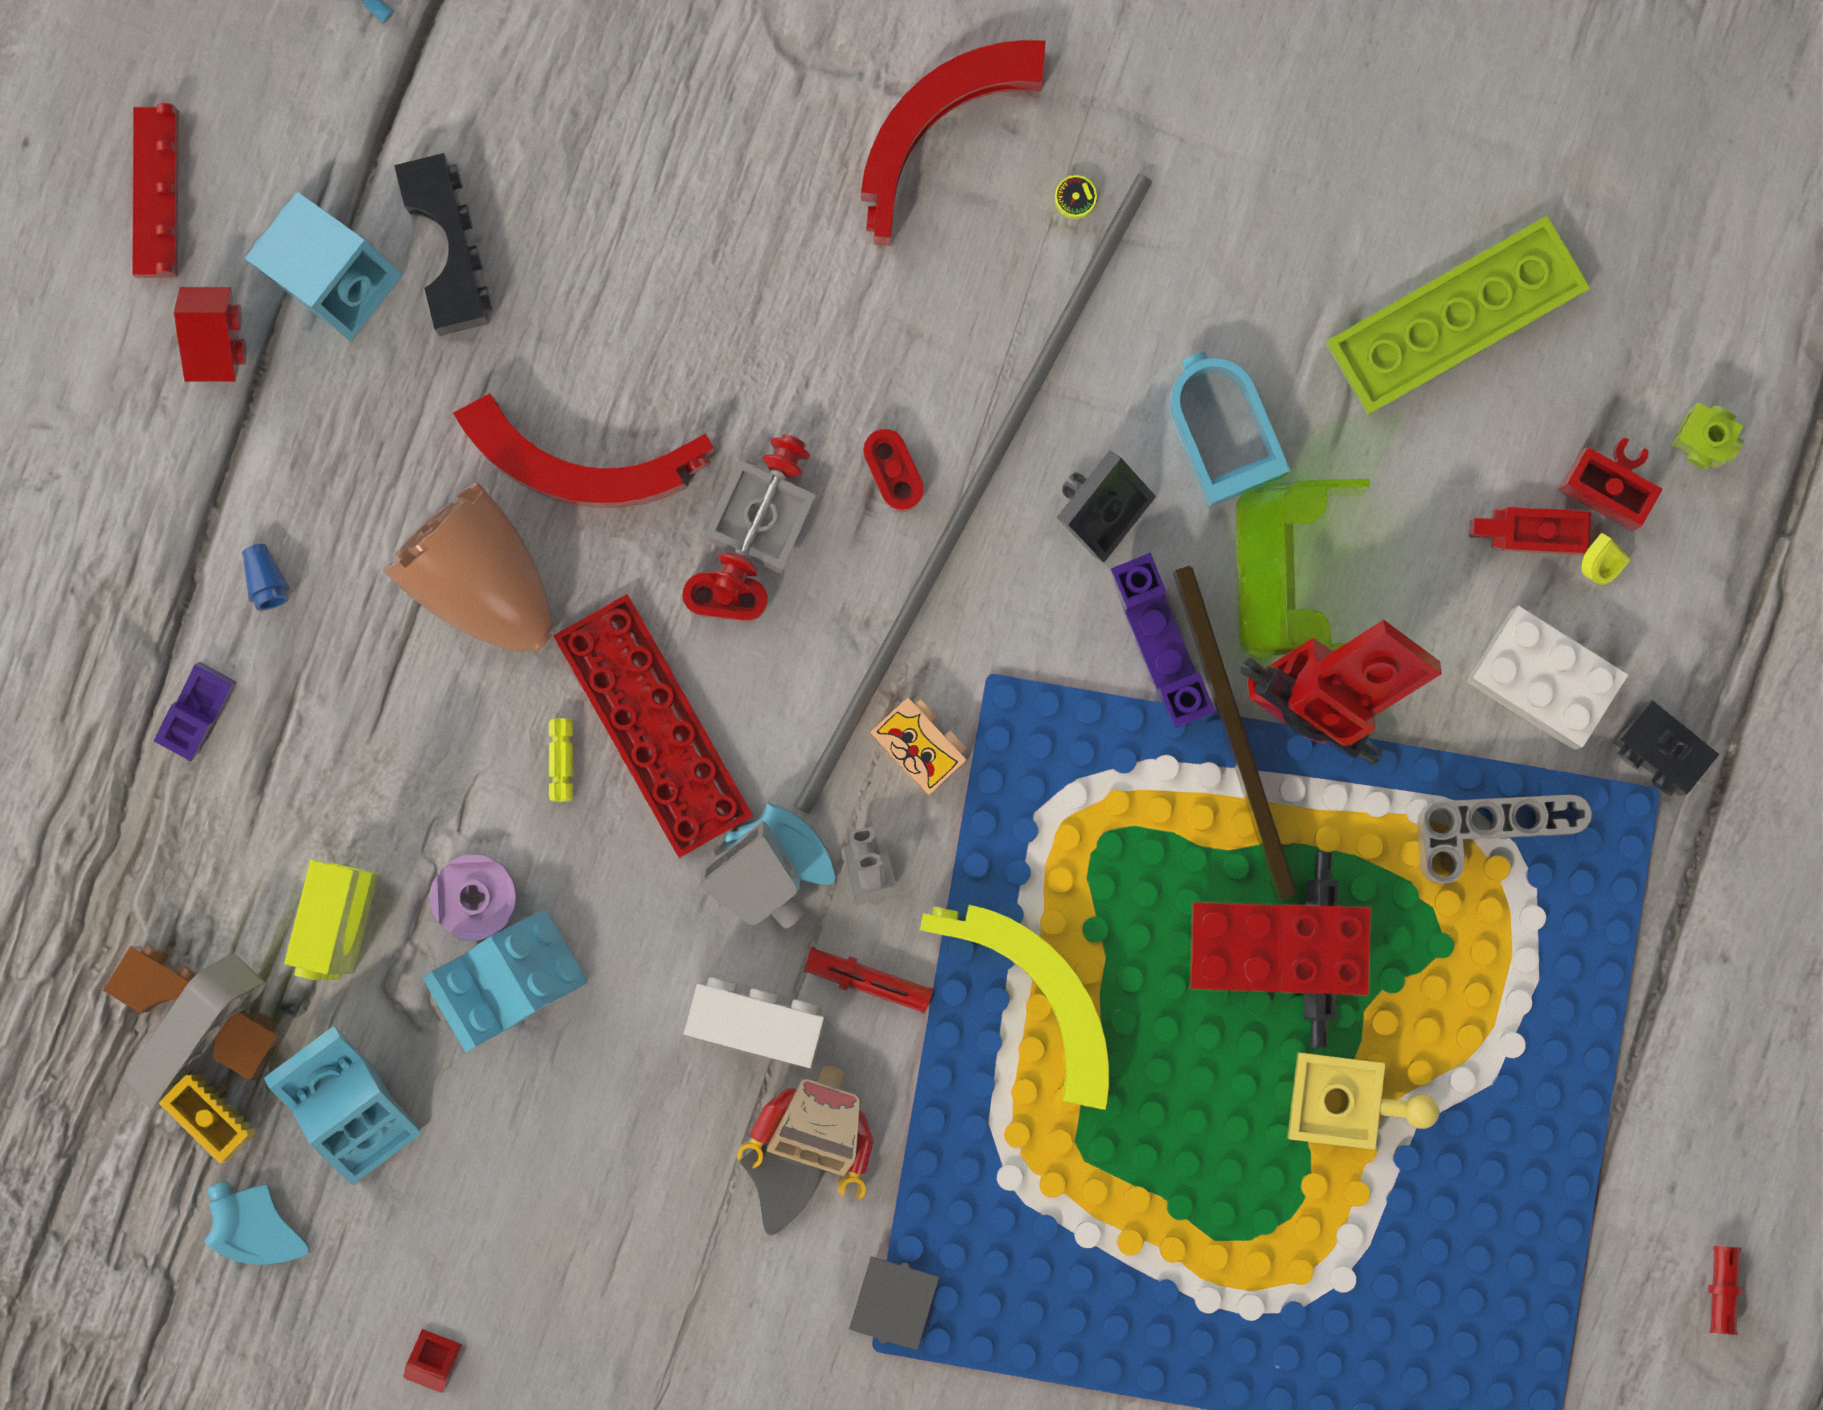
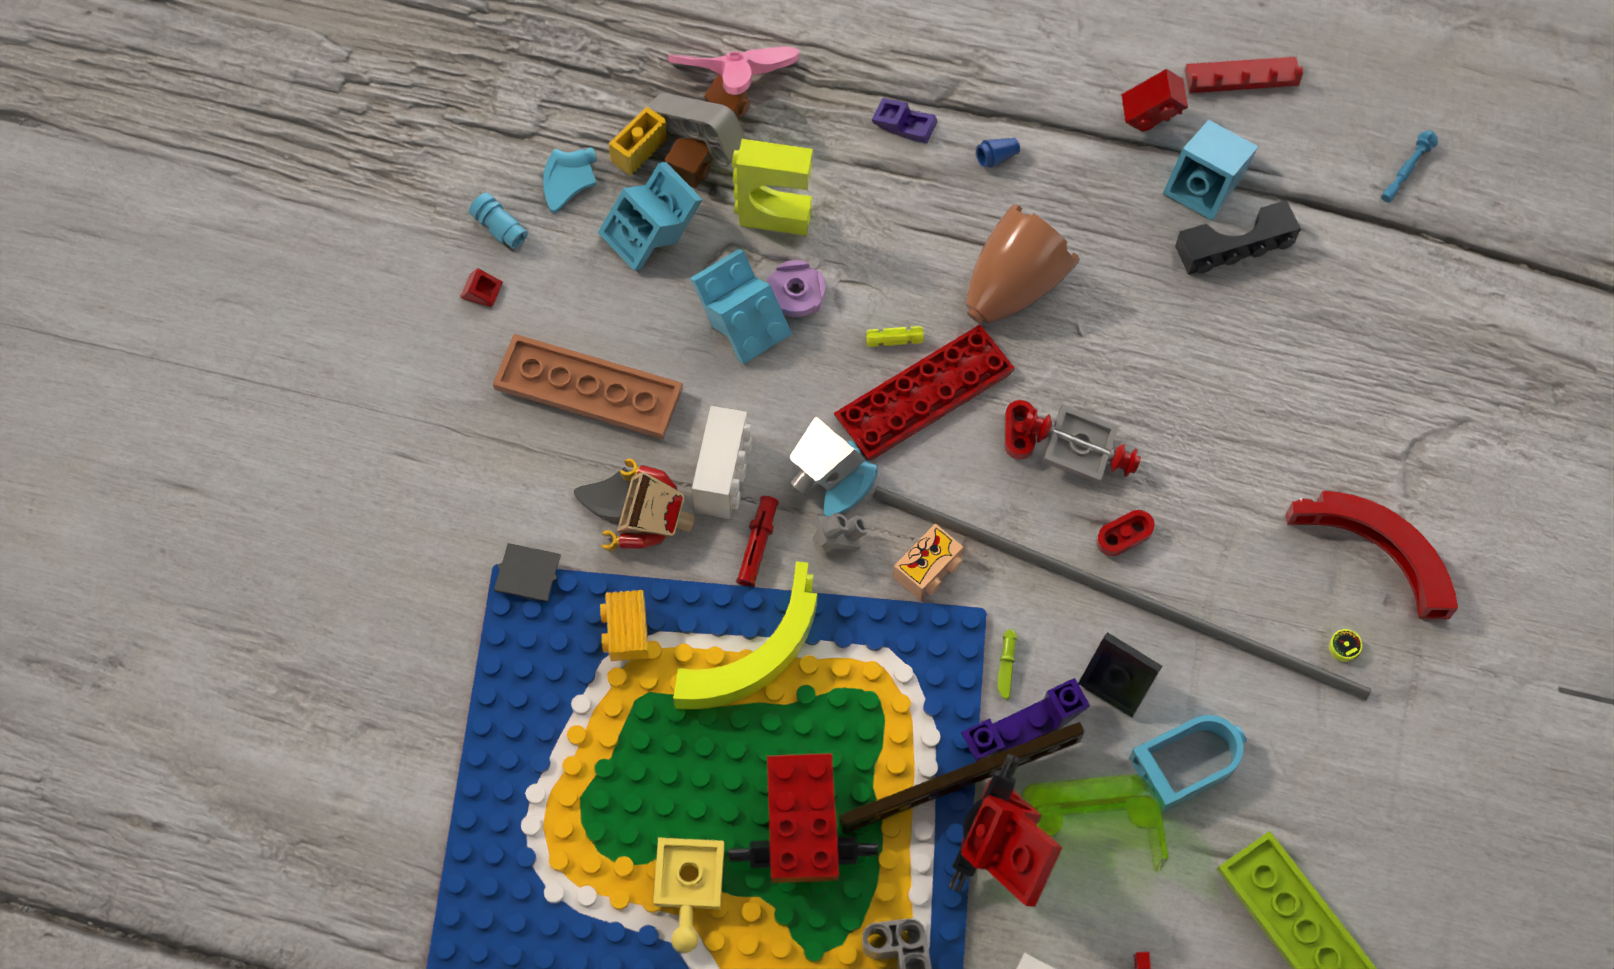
camera: 85 degrees right, 20 degrees down
(89, 956) = (739, 66): none -> bright pink piece
(329, 1328) = (500, 223): none -> medium azure axle
(573, 482) = (1105, 284): red arch -> none
(608, 1209) = (588, 386): none -> nougat plate
(989, 1169) = (625, 625): none -> yellow brick
(1071, 655) = (1006, 667): none -> lime piece

